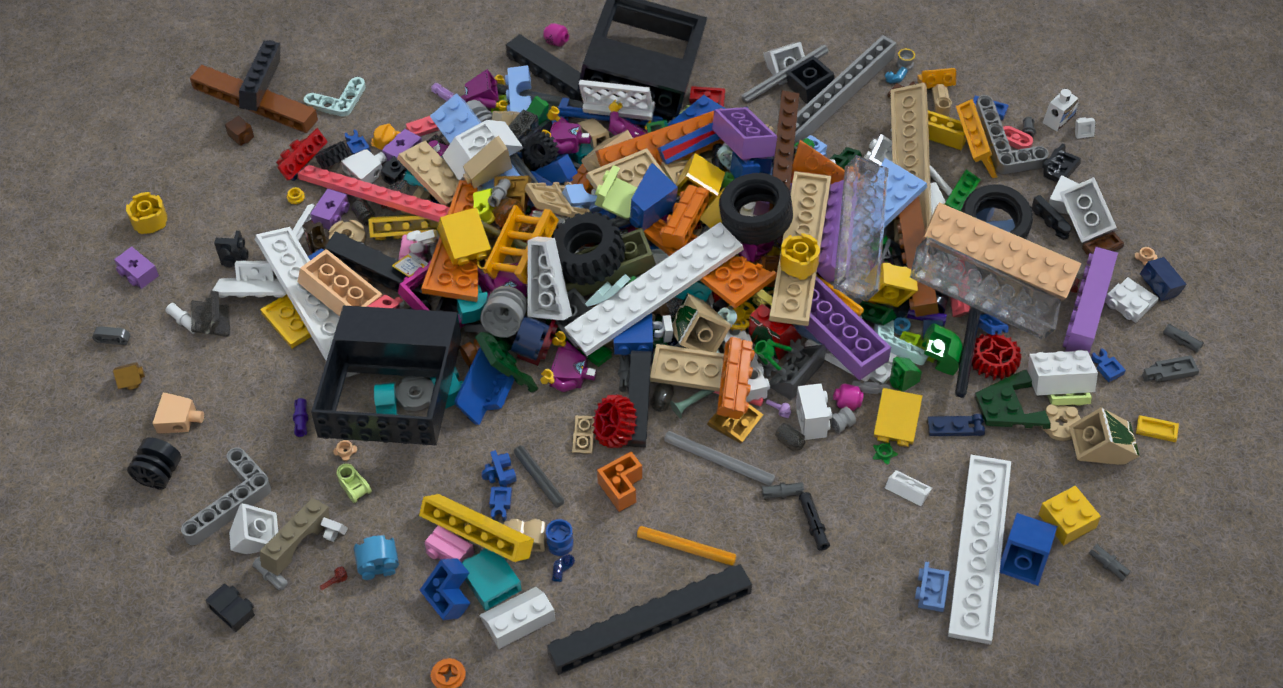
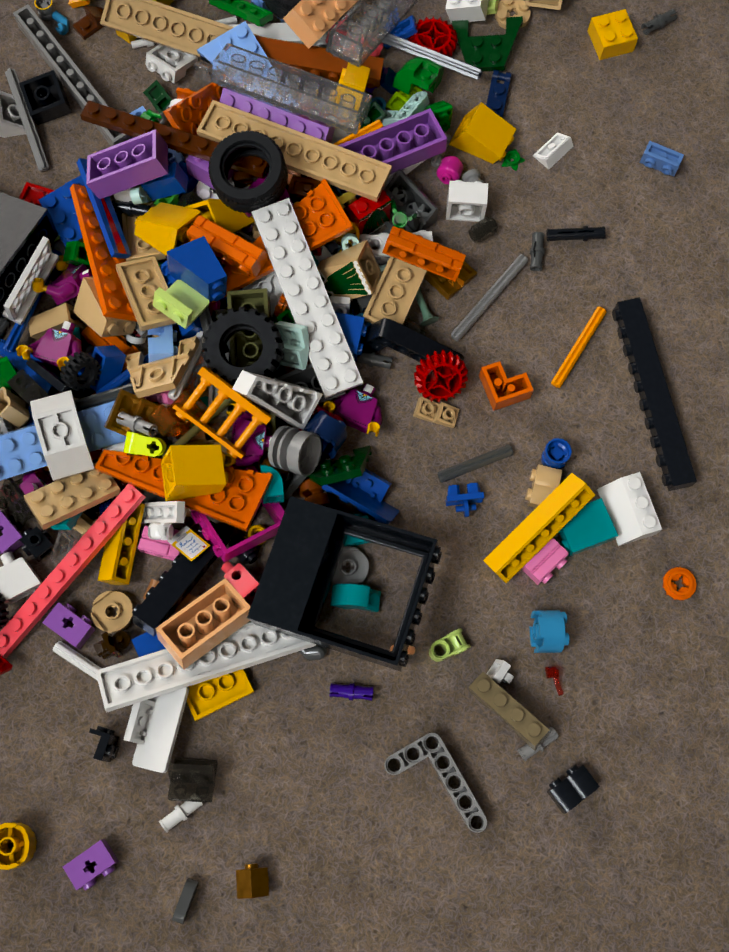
camera: 80 degrees left, 20 degrees up
(154, 463) = (387, 857): black wheel -> none
(176, 414) = (317, 829): light nougat torso -> none
(252, 529) = (488, 754): white slope -> none
(300, 196) = (28, 659): yellow plate -> none
(362, 211) = (83, 588): clear smoke brick -> none
(443, 589) = (598, 570): blue brick -> none
(487, 163) = (94, 428): tan slope -> none
(500, 500) = (497, 503): blue plate -> none
(562, 565) = (580, 462): clear blue arm -> none
(784, 409) = (448, 228): lavender hand -> none
(799, 256) = (319, 148): yellow brick -> none
(980, 550) = (627, 111): white plate -> none
(1027, 549) = (638, 74): blue slope -> none

